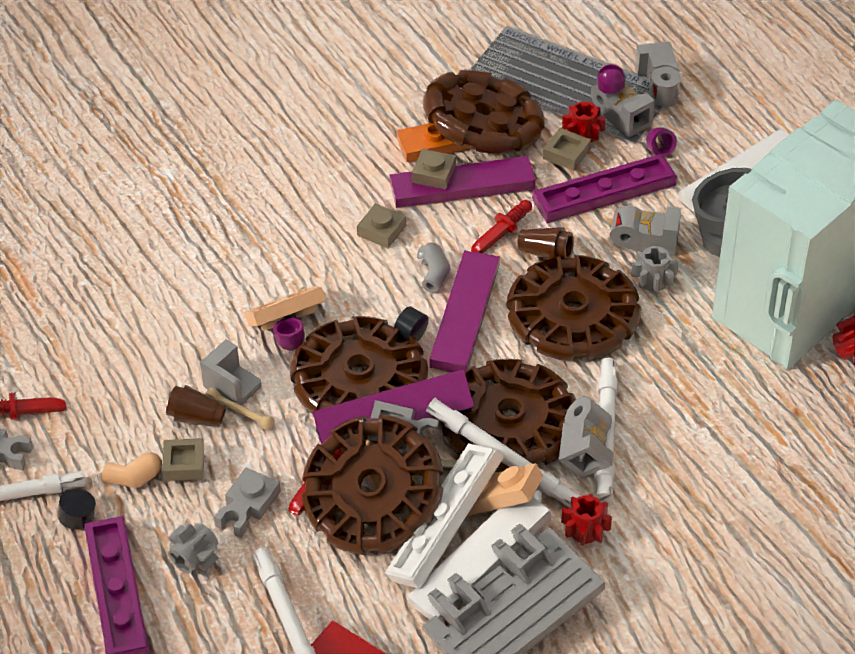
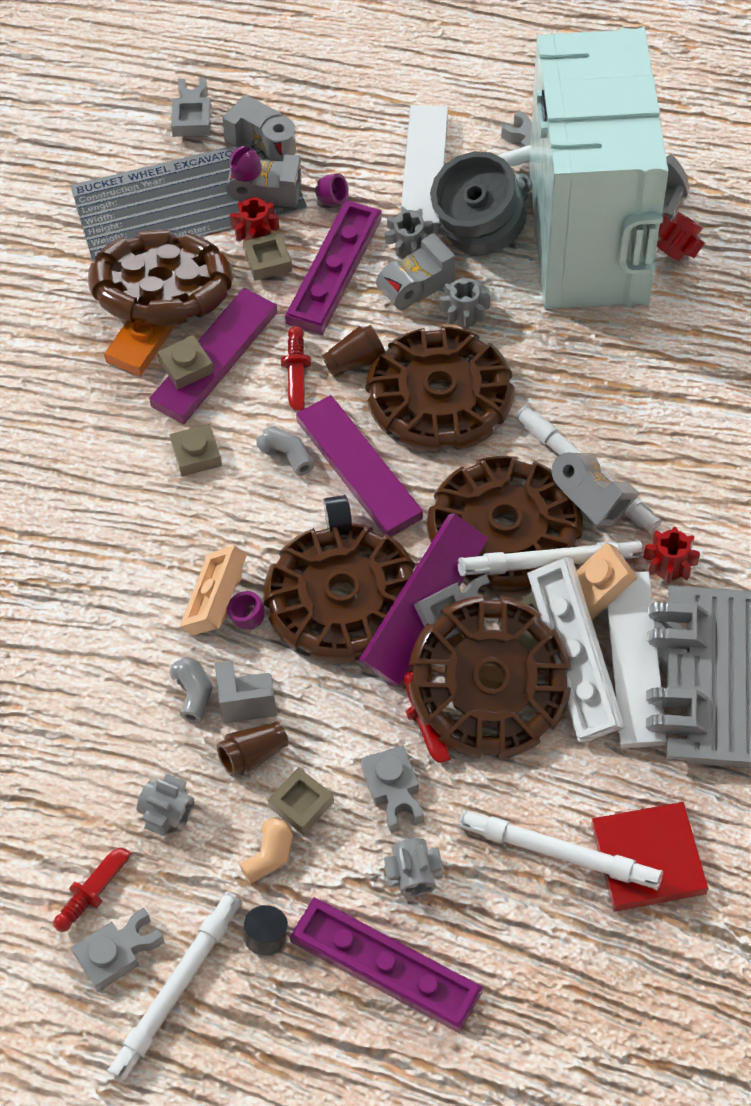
camera: 45 degrees left, 10 degrees up
(108, 393) = (165, 804): none -> light grey gear
(213, 338) = (198, 687): none -> light grey arm
(266, 422) = (321, 704): tan hinge -> none
(630, 32) = (191, 111): none -> light grey plate
(673, 194) = (407, 221): none -> light grey gear

